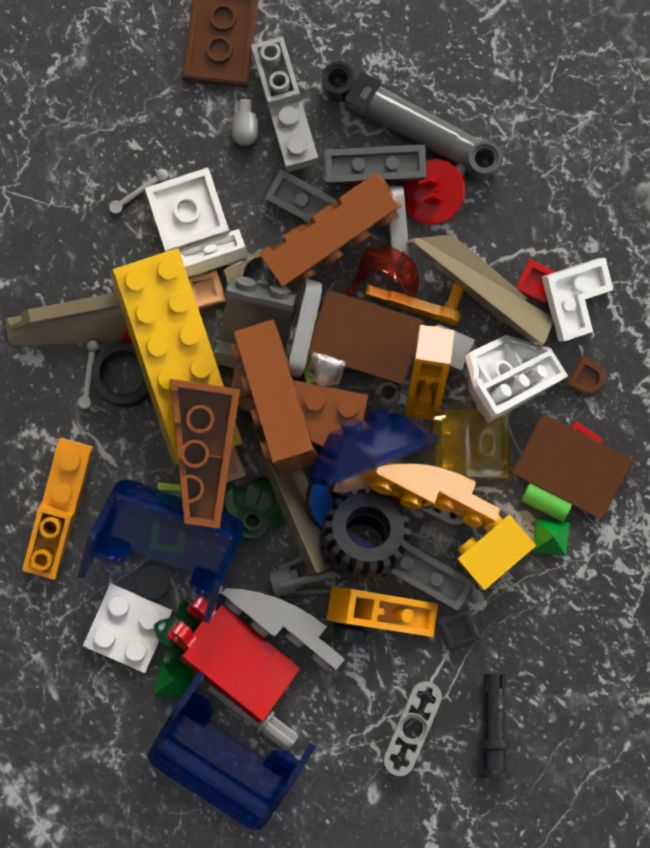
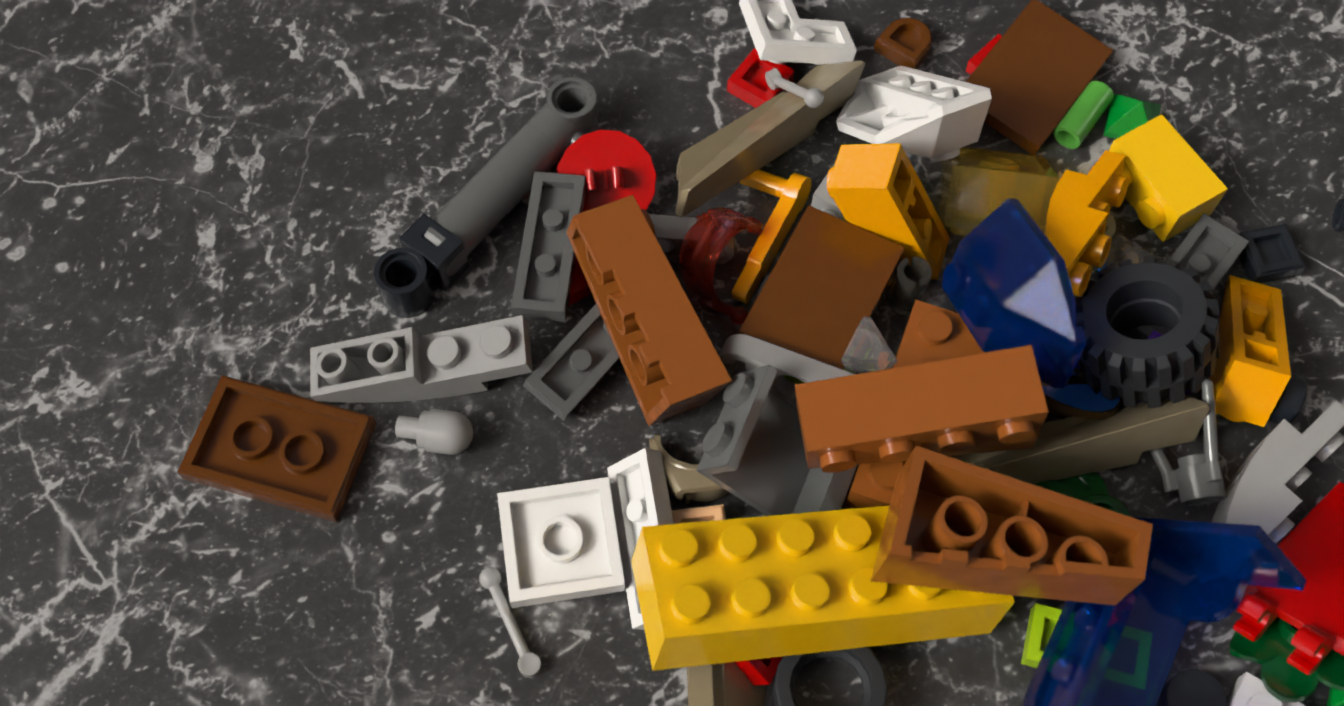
camera: 80 degrees left, 20 degrees down
(500, 311) = (813, 97): none -> light grey hinge

